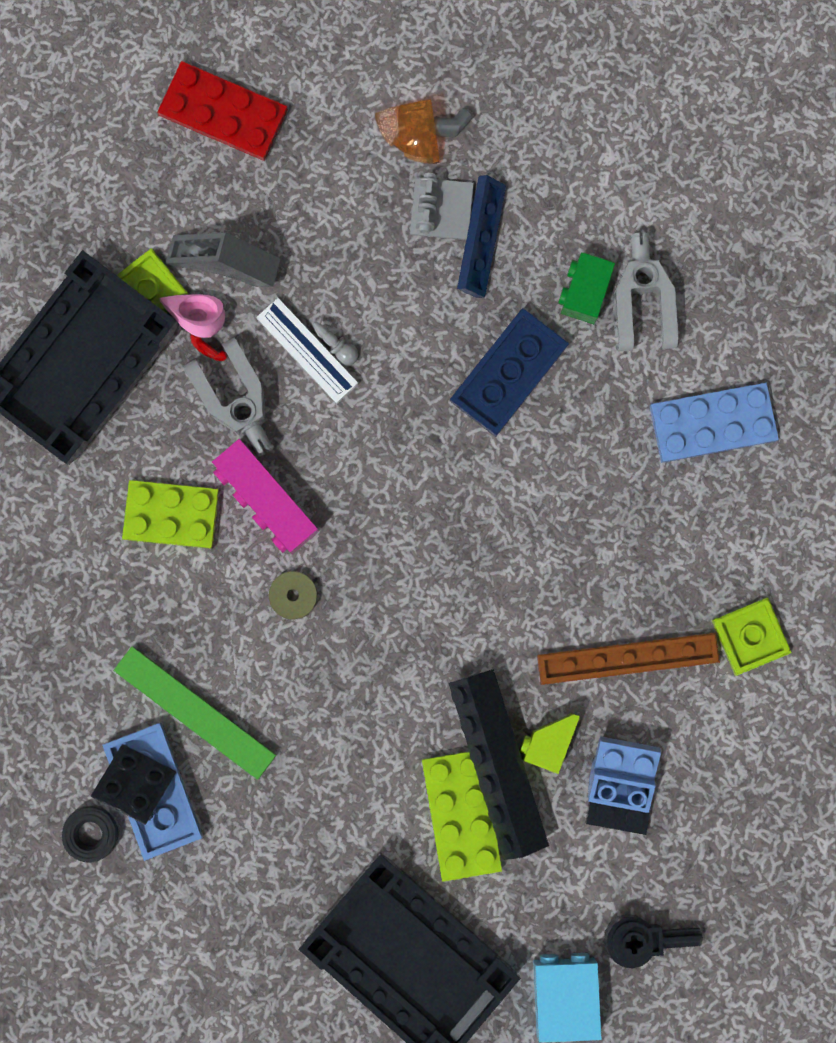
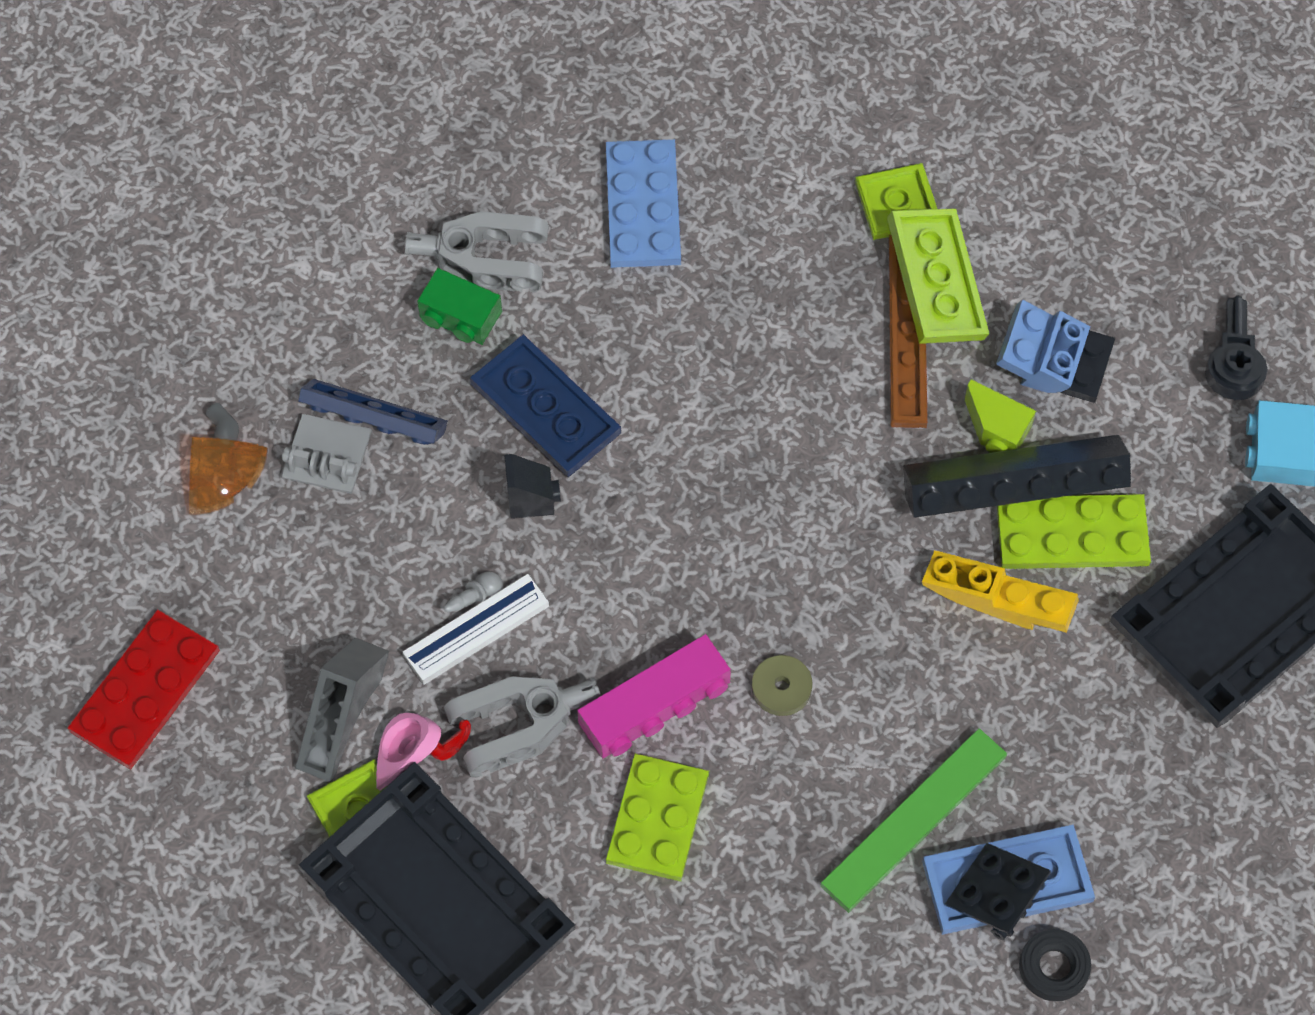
camera: 75 degrees left, 20 degrees down
(393, 760) = (999, 595): none -> yellow slope
(427, 370) = (530, 488): none -> black slope
(678, 678) = (938, 276): none -> lime plate

